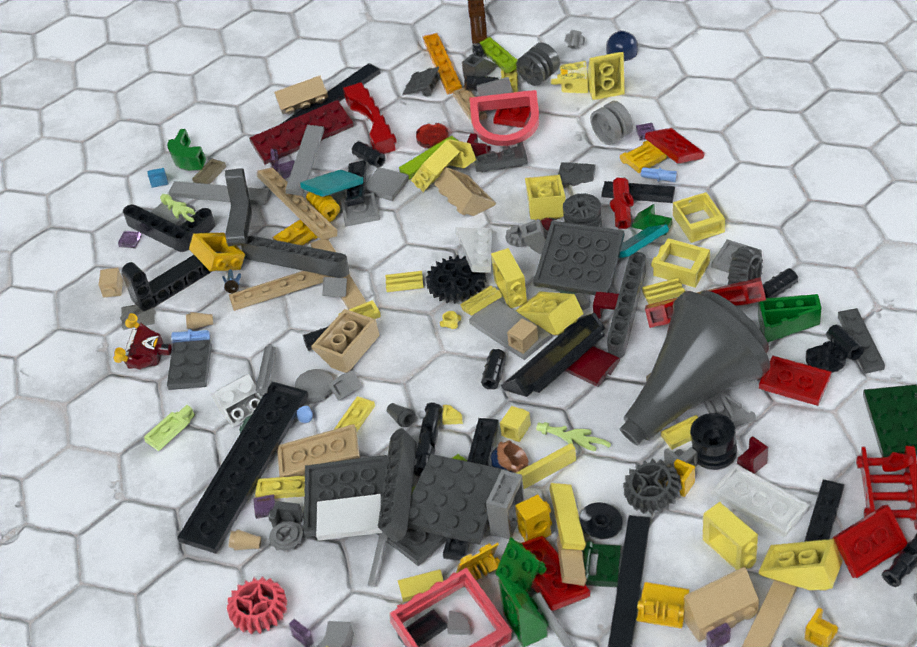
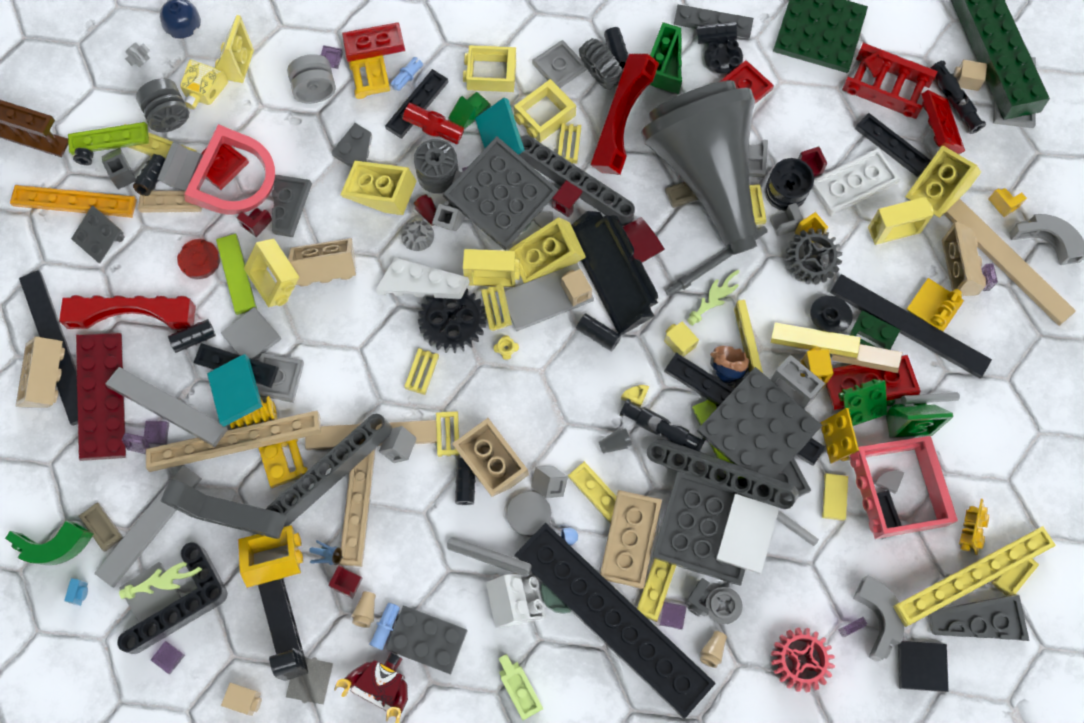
camera: 75 degrees left, 25 degrees up
(215, 300) = (345, 582): none -> dark red panel
(465, 156) = (246, 243): light yellow hinge -> none
(576, 410) = (685, 281): none -> dark grey bar

